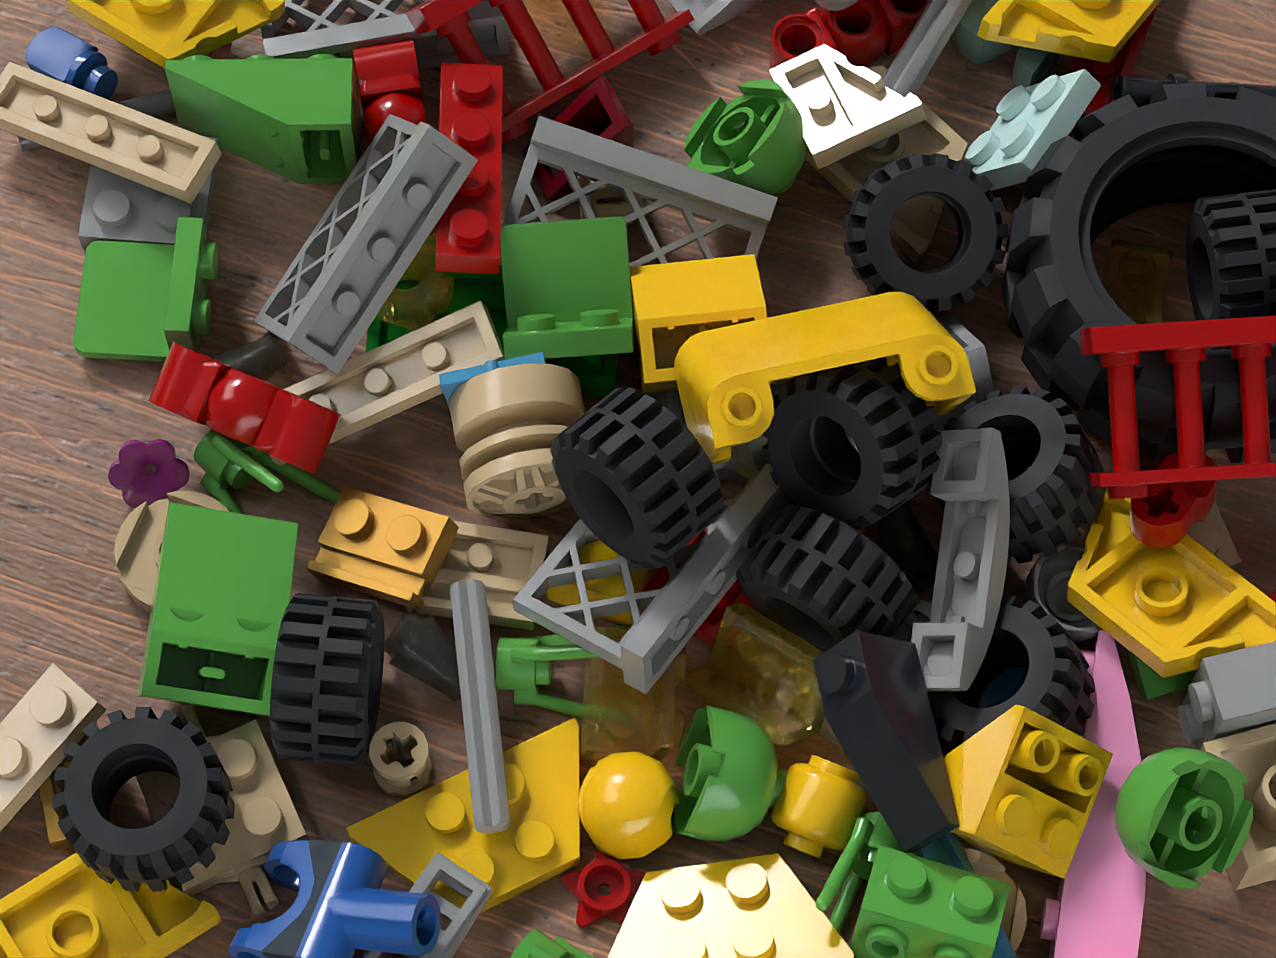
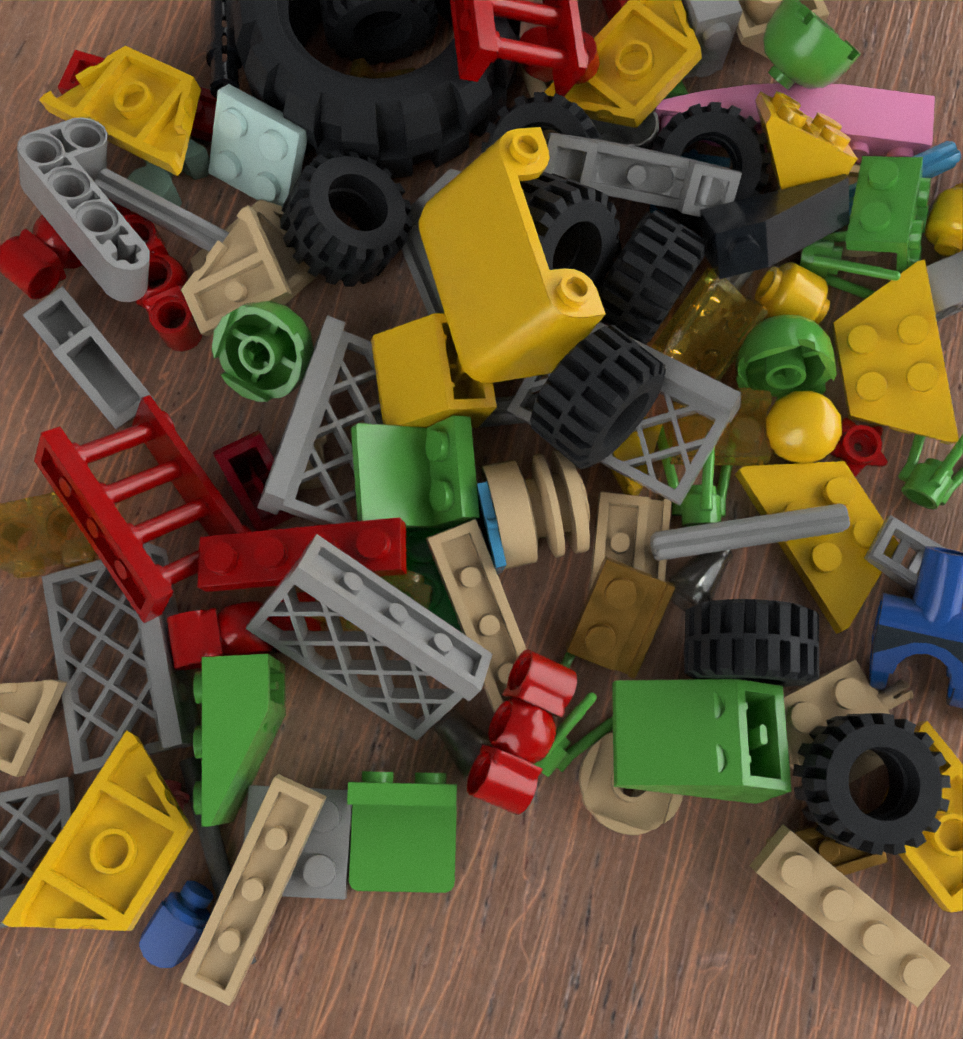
camera: 95 degrees left, 10 degrees up
(147, 471) = (563, 813): magenta plant -> none
(409, 743) = (804, 594): tan bush -> none

